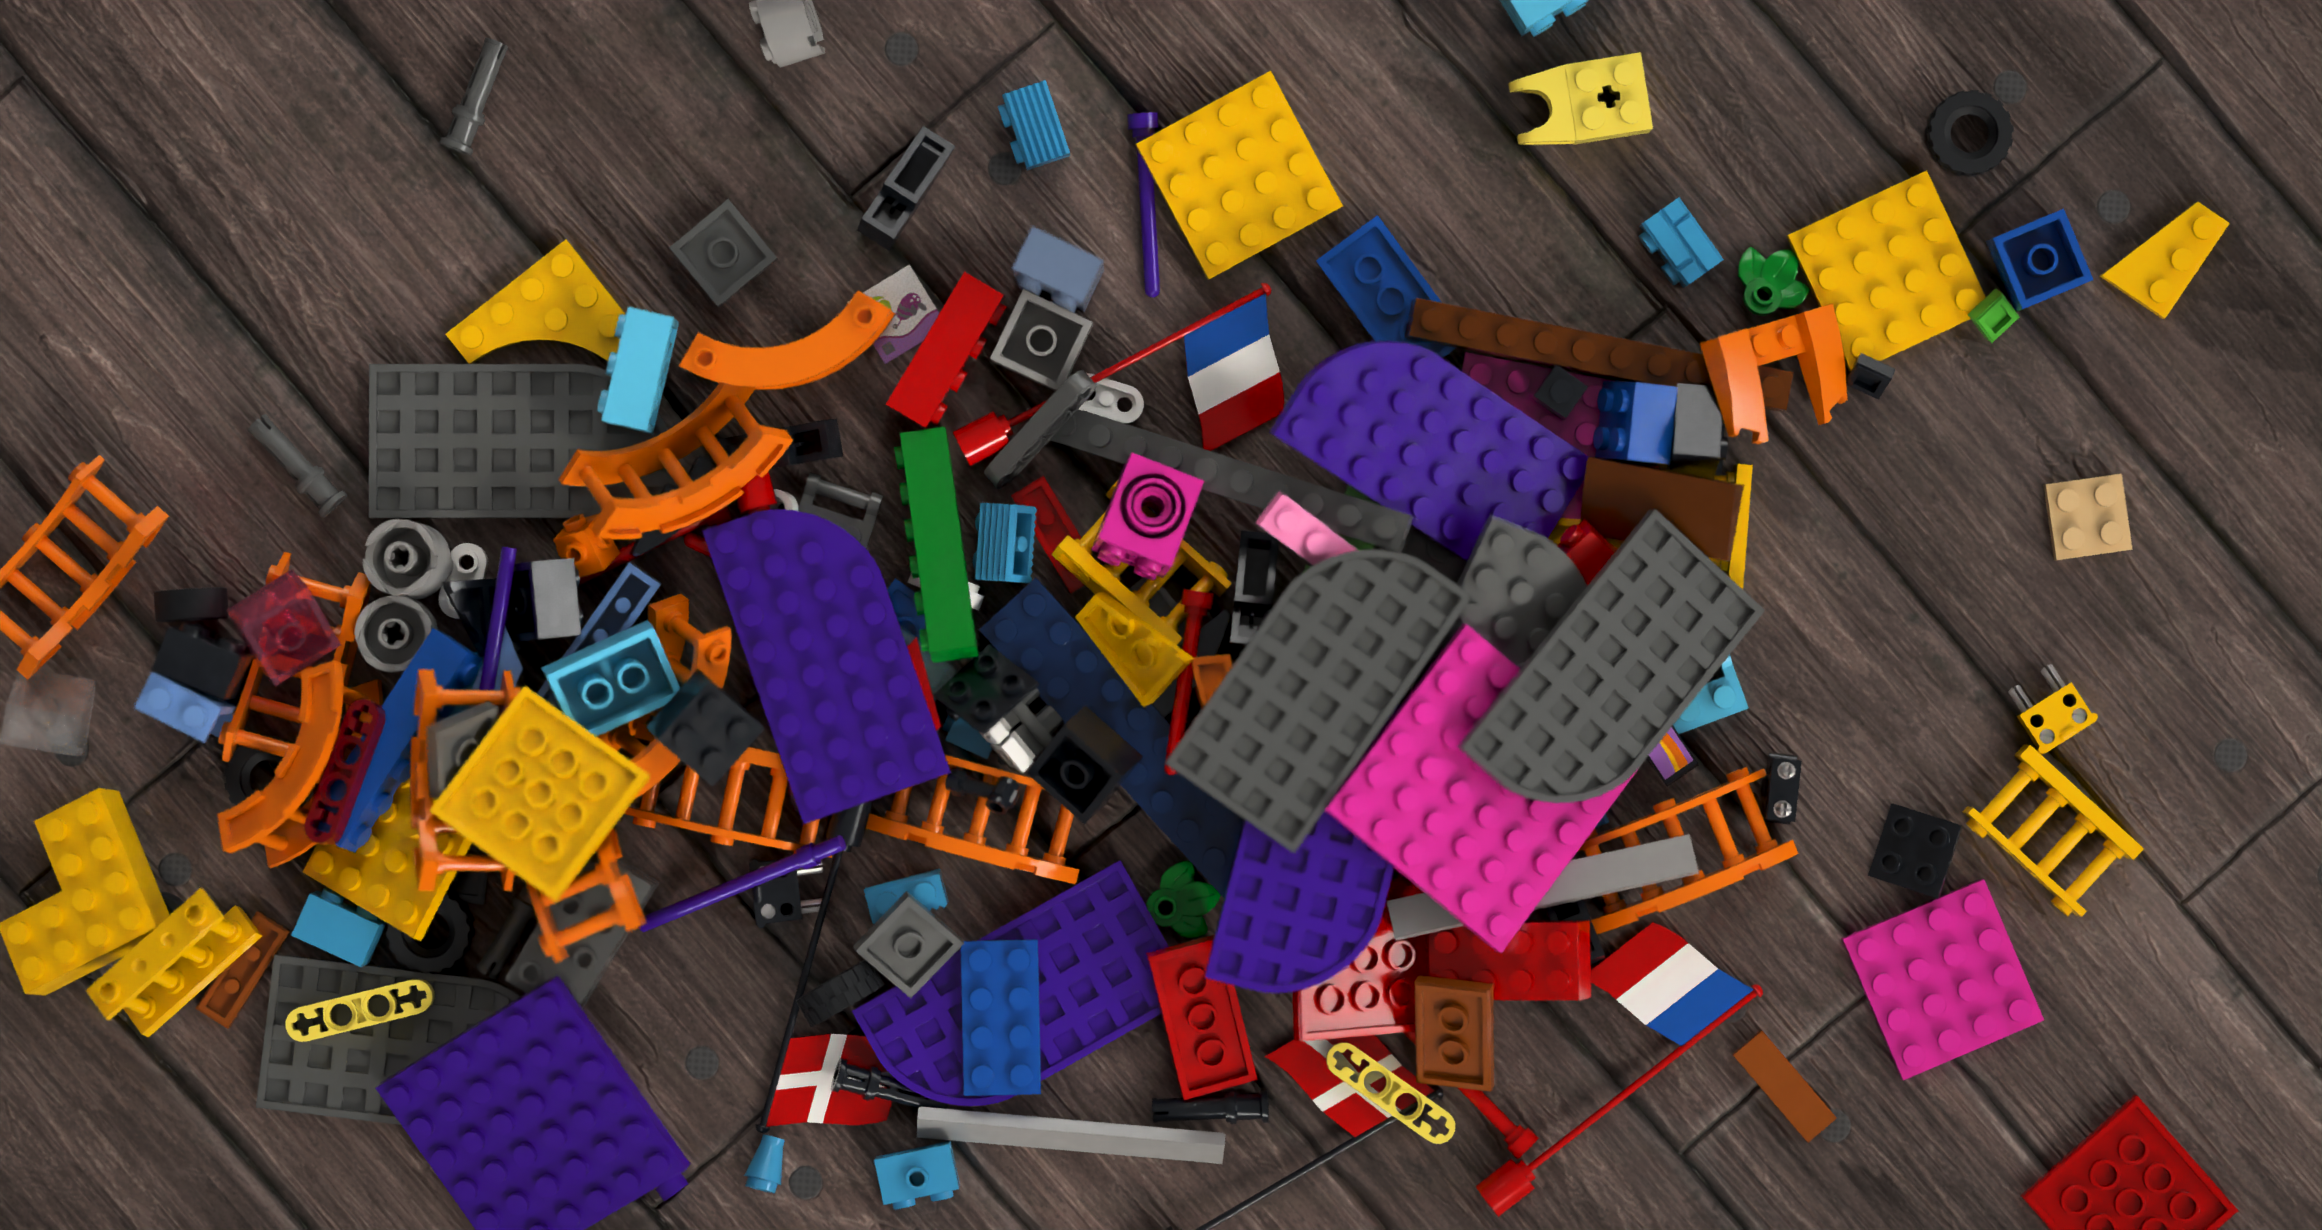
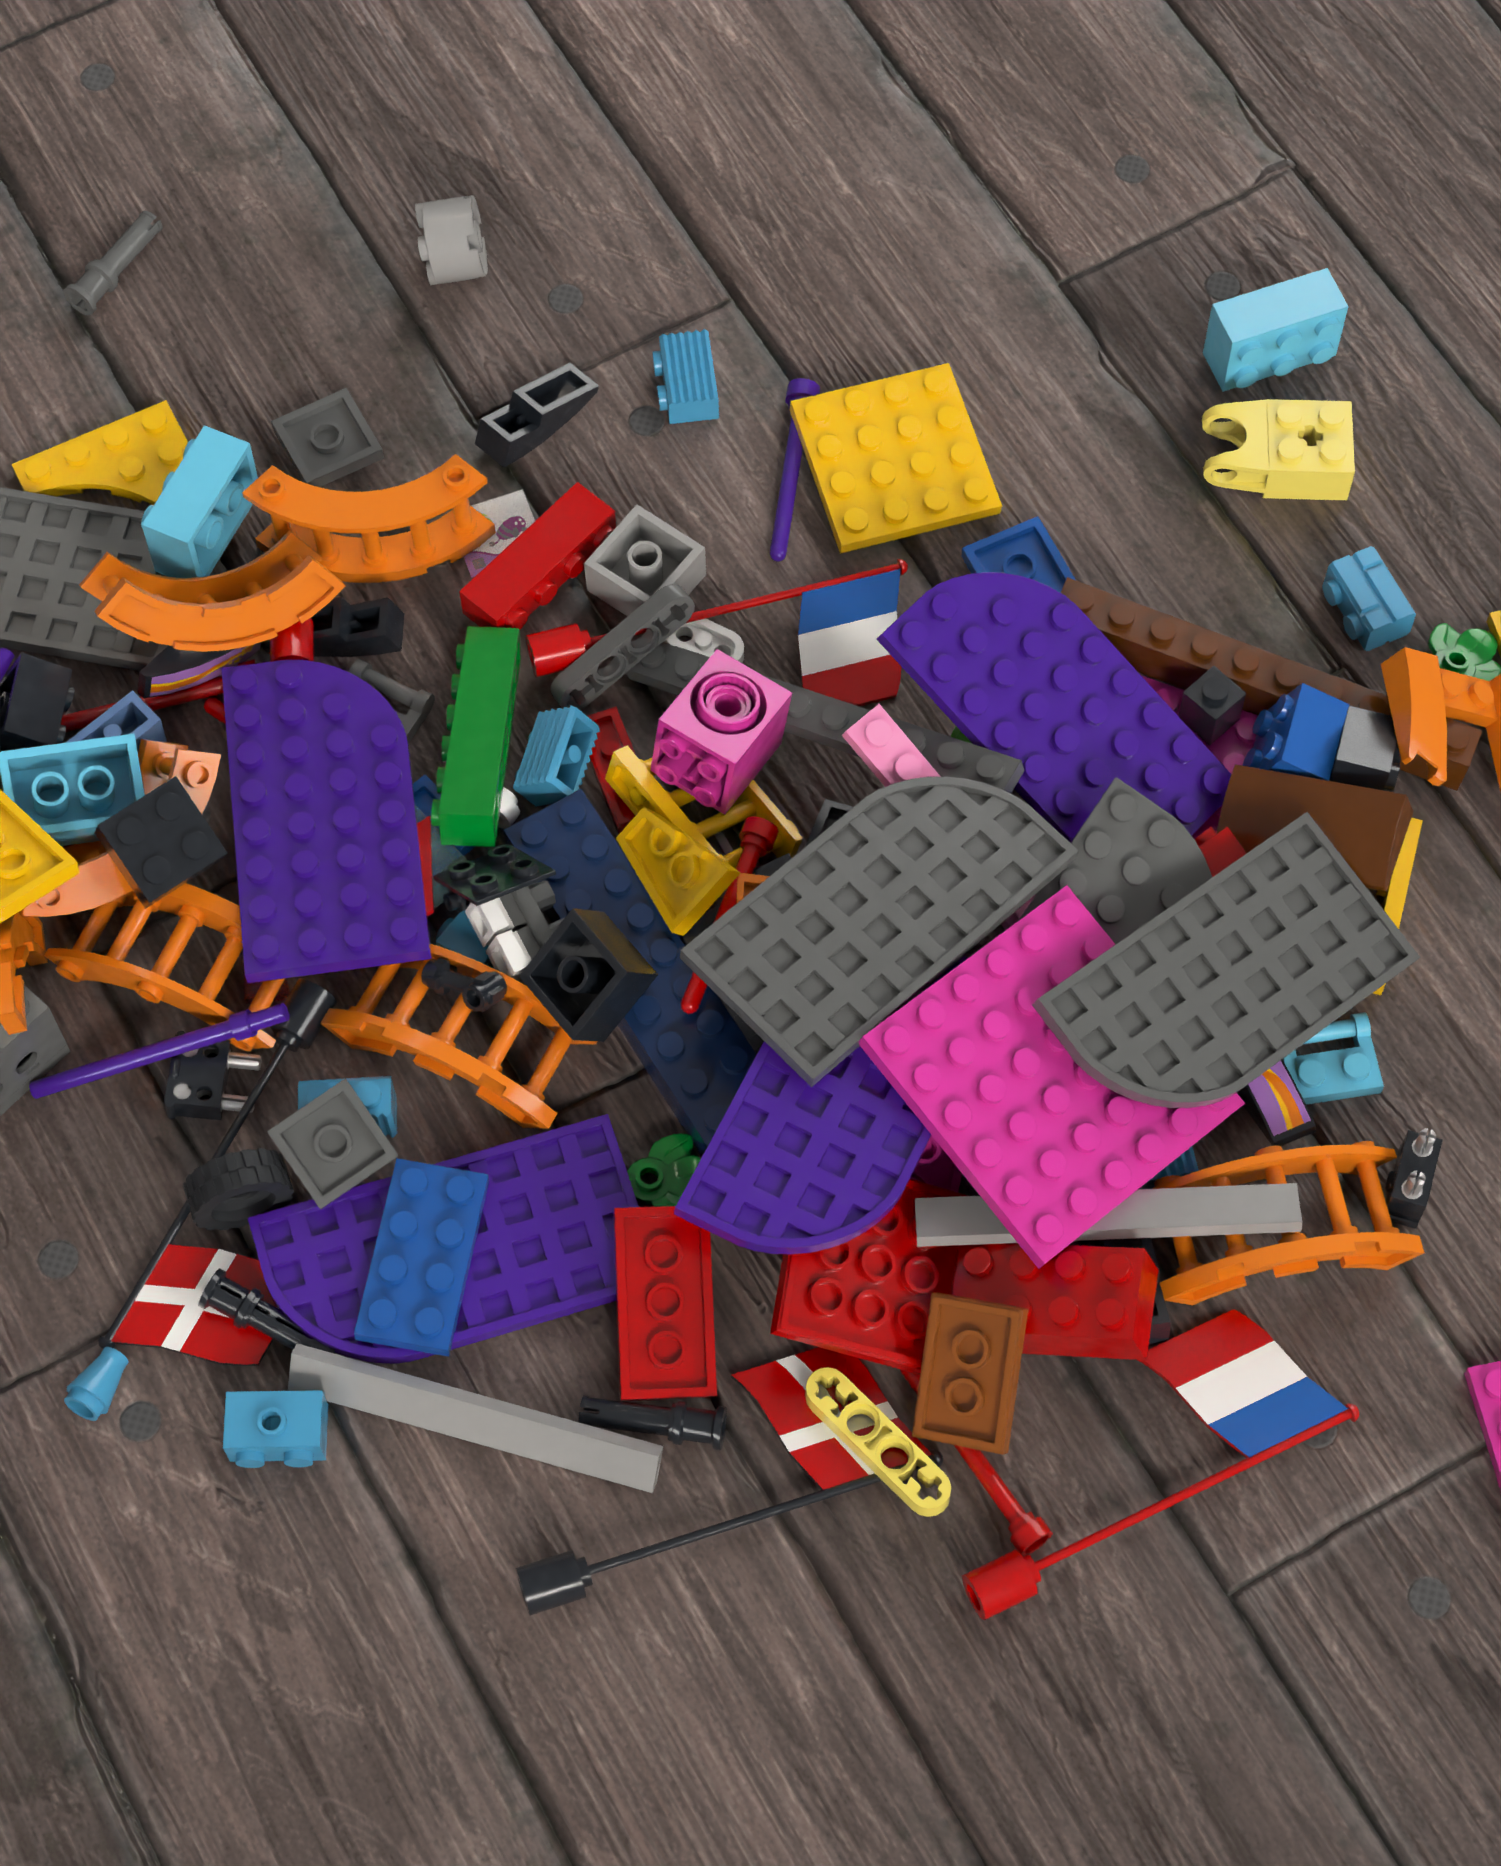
camera: 10 degrees right, 25 degrees down
(580, 542) = (95, 676): orange brick -> none
(1057, 270) = (680, 470): sand blue brick -> none
(1784, 1086) = (1372, 1533): dark orange tile -> none

